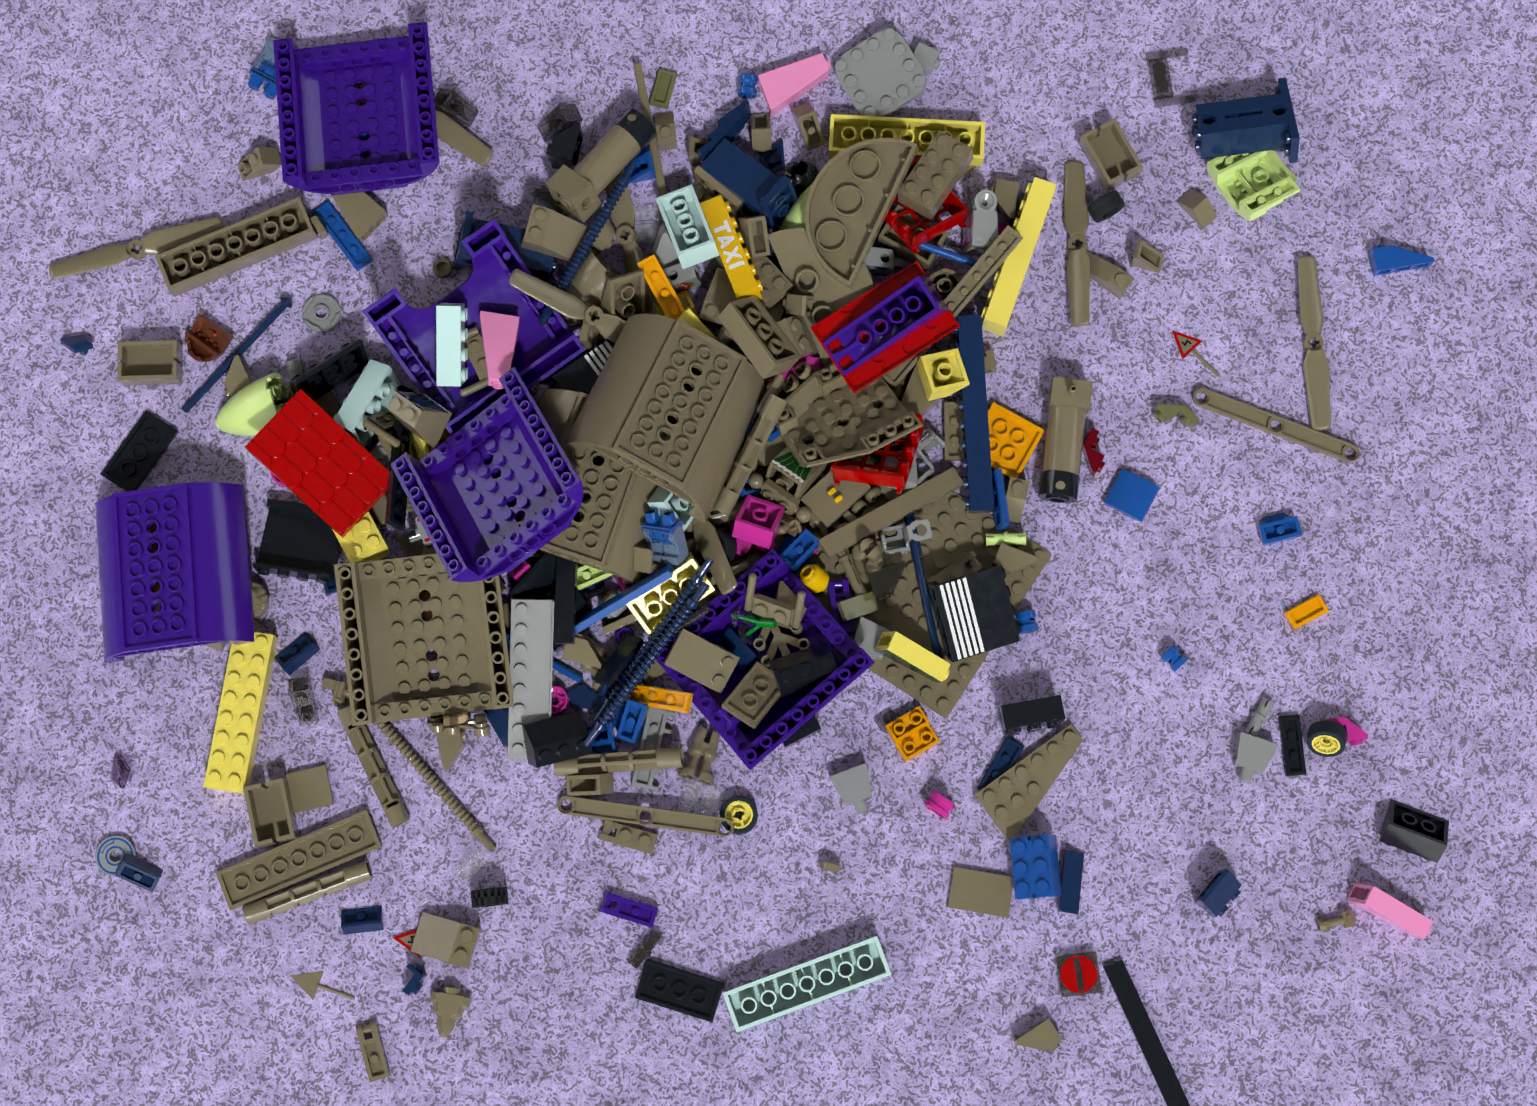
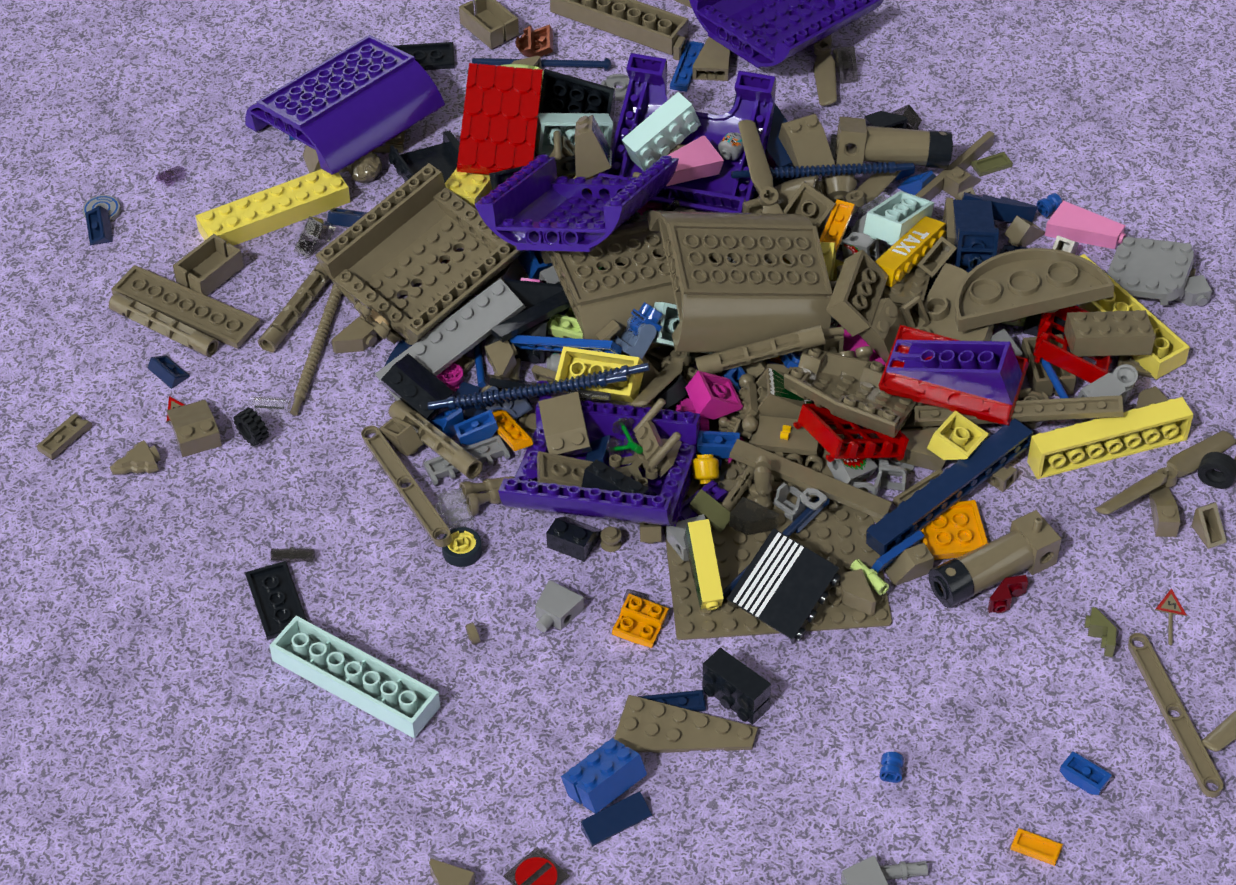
camera: 50 degrees right, 30 degrees down
(310, 789) = (247, 282): dark tan tile -> none
(310, 983) = (92, 370): dark tan piece -> none
(414, 984) = (144, 425): dark blue bracket -> none
(505, 296) = (731, 146): none -> light grey head
(629, 837) = (379, 489): dark tan plate -> none
(629, 910) = (317, 525): dark purple plate -> none
(939, 804) = (595, 674): dark pink wheel -> none
(980, 892) = (544, 756): dark tan tile -> none
(1027, 621) = (815, 639): blue wheel -> none
(1132, 495) = (1000, 645): blue slope -> none

